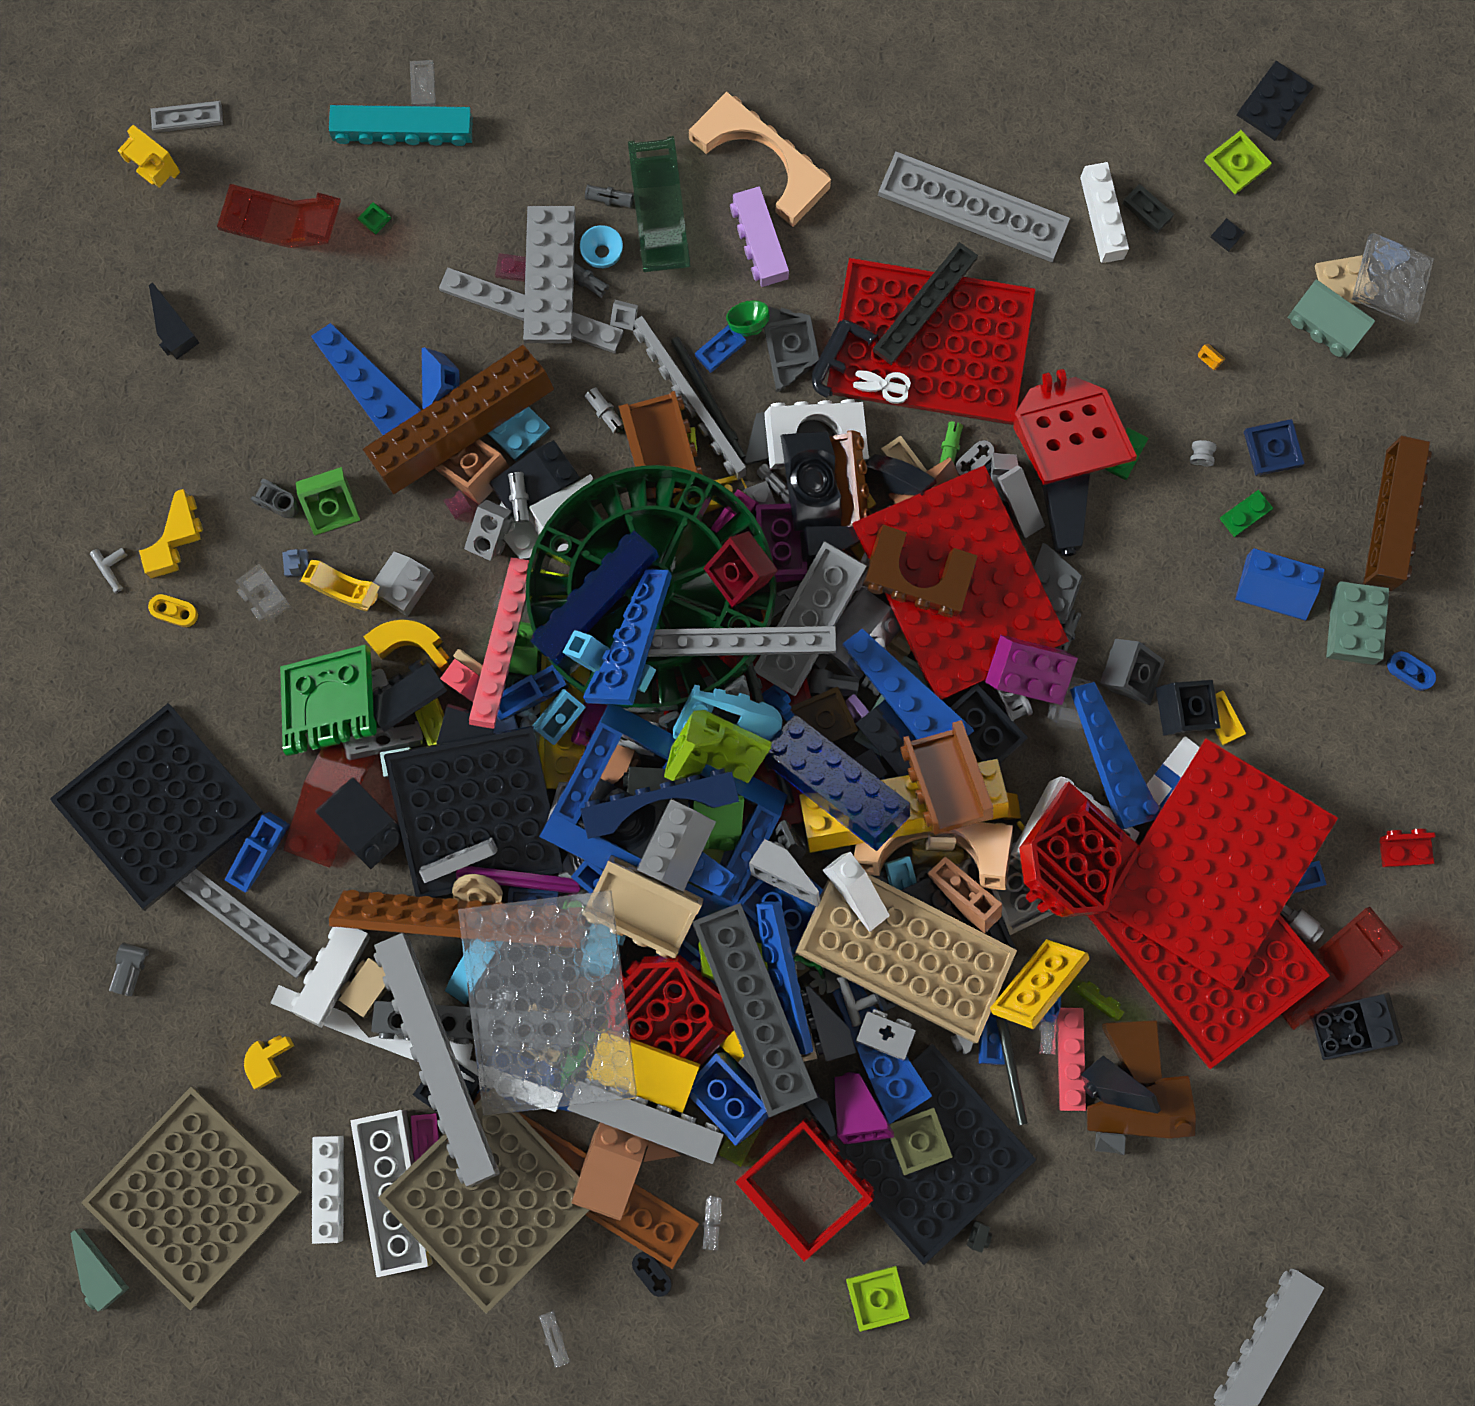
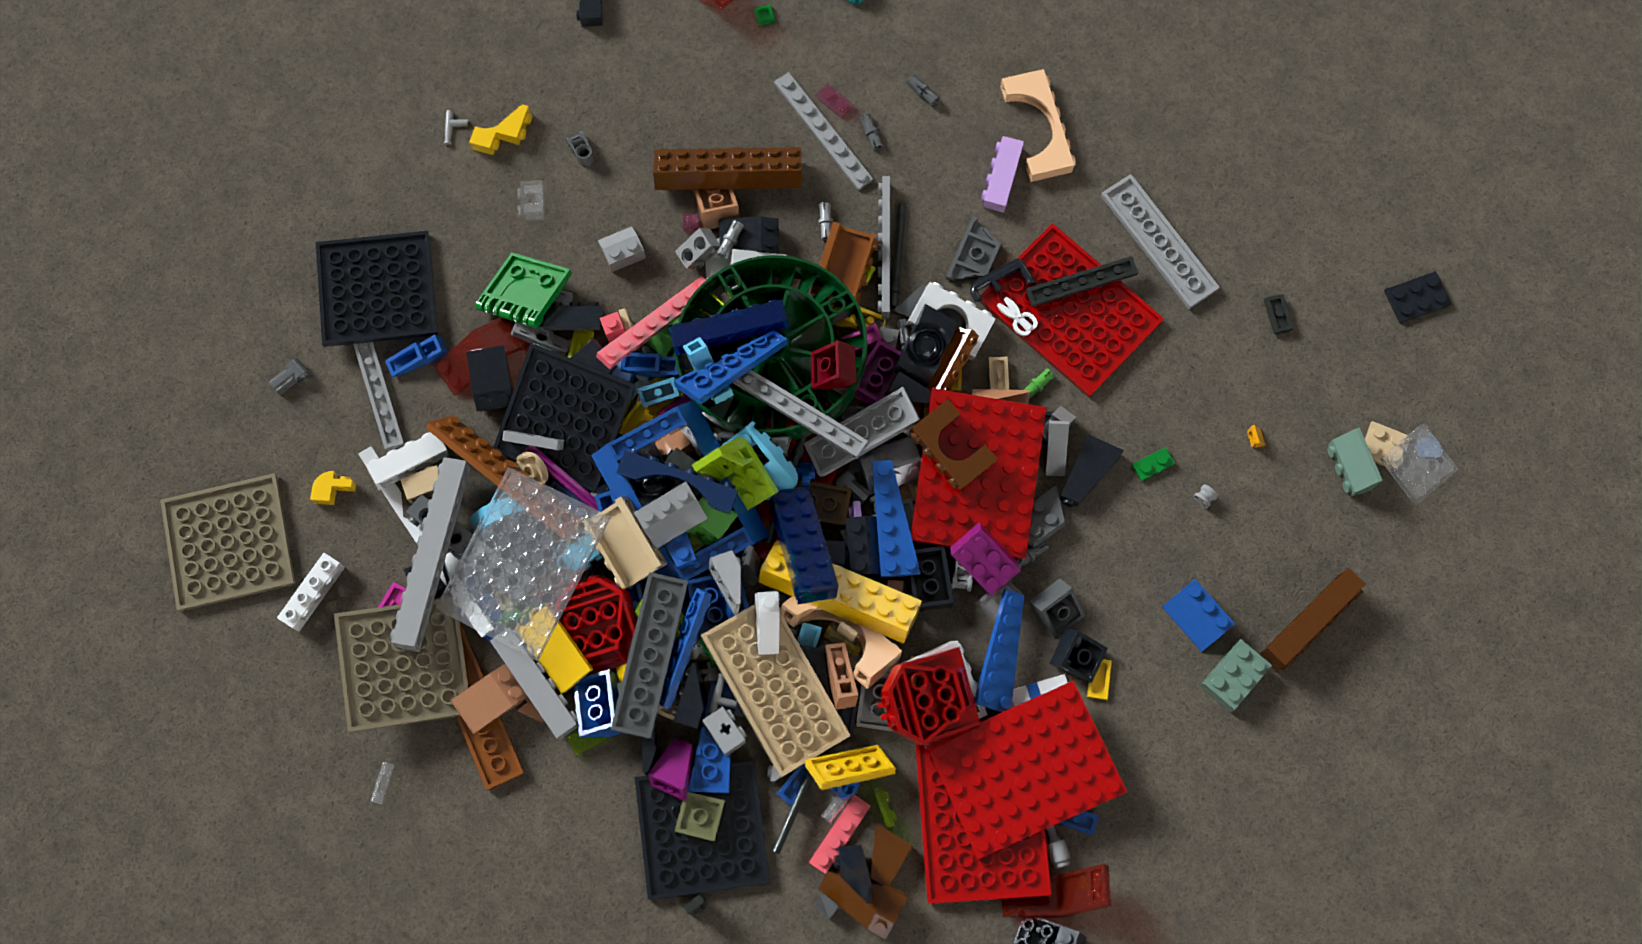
camera: 35 degrees right, 5 degrees down
(96, 1275) = (137, 550): sand green slope -> none
(174, 610) = (472, 177): yellow plate -> none
(295, 562) = (566, 195): sand blue tile -> none
(327, 501) = (611, 169): bright green slope -> none
(340, 586) = (581, 225): yellow arch -> none
(373, 390) = (689, 121): blue wing -> none
(382, 1156) = (359, 590): white brick -> none
(401, 633) = (595, 277): yellow arch -> none
(438, 376) = (735, 134): blue slope -> none
(519, 433) = (762, 202): medium azure plate -> none
(549, 274) = (849, 115): light grey plate -> none
(597, 237) = (898, 111): medium azure piece -> none
(623, 315) = (879, 168): light grey plate -> none
(646, 1278) = (466, 785): black beam -> none
(659, 207) = (949, 115): clear green windscreen -> none
(712, 1223) = (532, 779): clear axle -> none
(719, 348) = (928, 228): blue plate -> none
(748, 317) = (958, 219): green piece -> none
(777, 1218) = (575, 801): red window -> none
(877, 1298) = (603, 901): lime plate -> none
(897, 475) = (984, 379): black slope -> none
(947, 780) = (876, 590): dark orange panel -> none
(971, 455) = (1045, 399): light grey beam -> none
(1013, 810) = (914, 642): light orange slope -> none
(1070, 402) = (1122, 421): red hinge -> none
(1104, 212) = (1245, 298): white brick -> none
(1227, 235) = (1322, 365): black plate -> none
(1238, 162) = (1362, 321): lime plate -> none
(1246, 513) = (1209, 555): green plate -> none
(1273, 447) = (1257, 523): dark blue plate -> none
(1407, 849) = (1166, 849): red bracket -> none
(1410, 671) = (1253, 732): blue plate -> none

